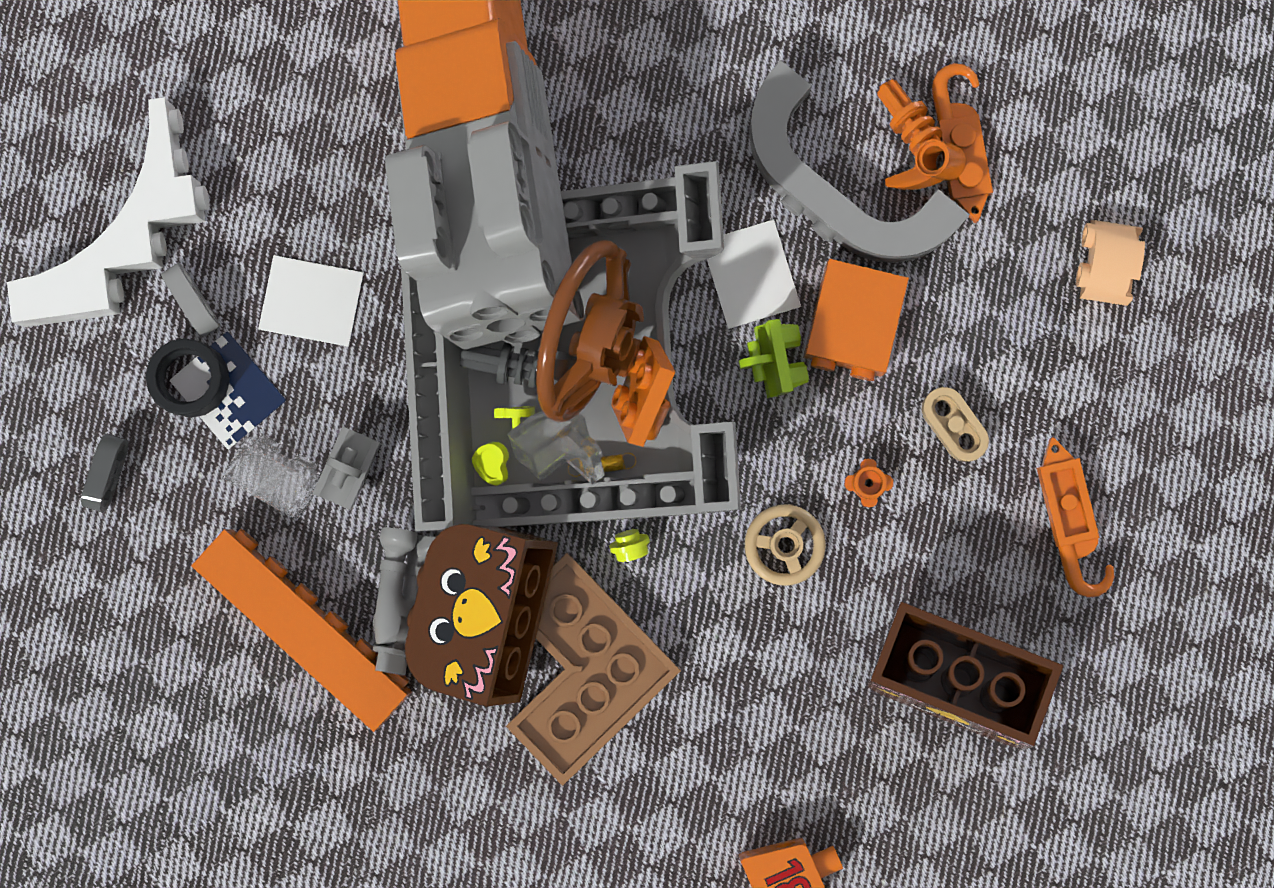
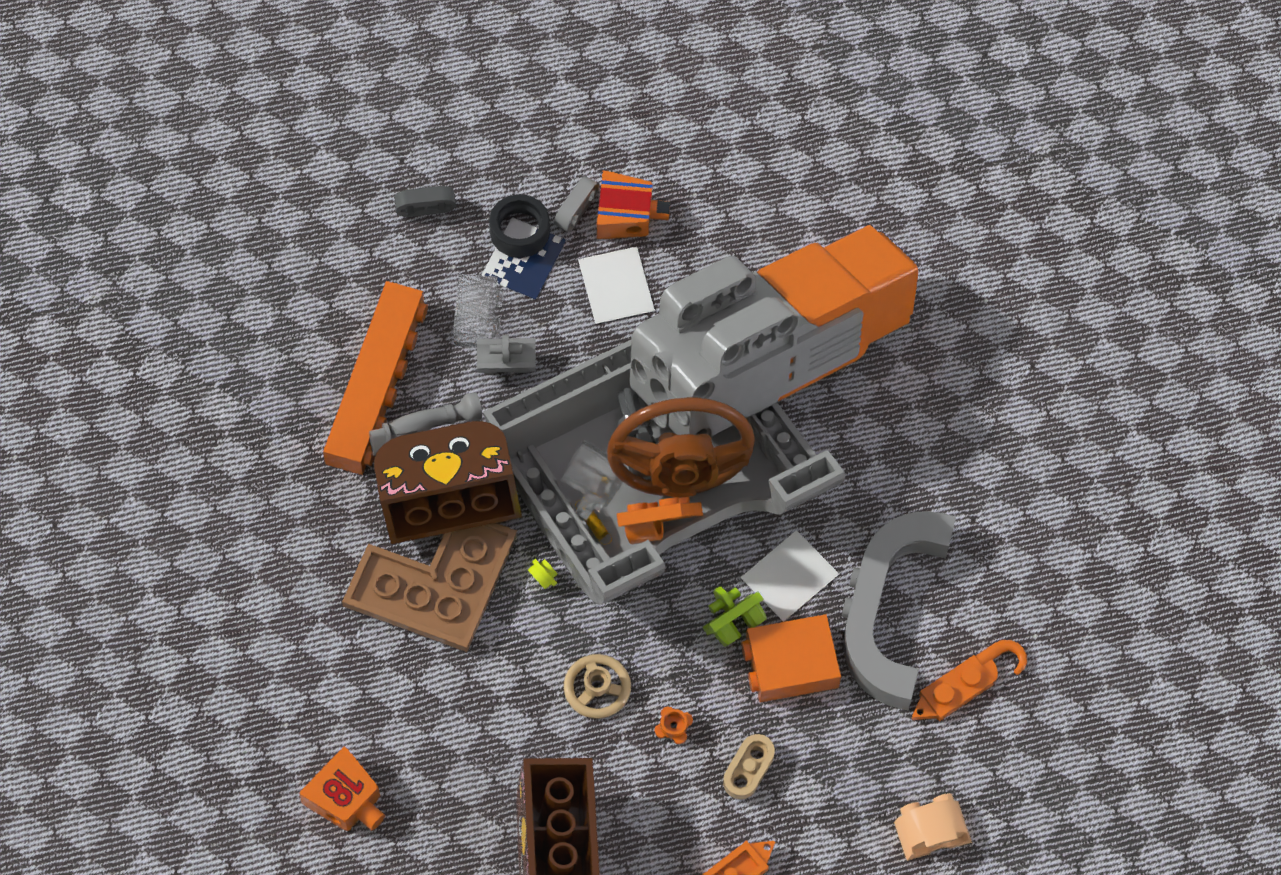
camera: 55 degrees right, 20 degrees down
(131, 243) = (638, 153): white arch -> none
(222, 243) = (627, 207): none -> torso
(491, 463) = (557, 444): neon yellow piece -> none
(514, 413) = (600, 441): neon yellow piece -> none
(924, 141) = (941, 656): orange piece -> none

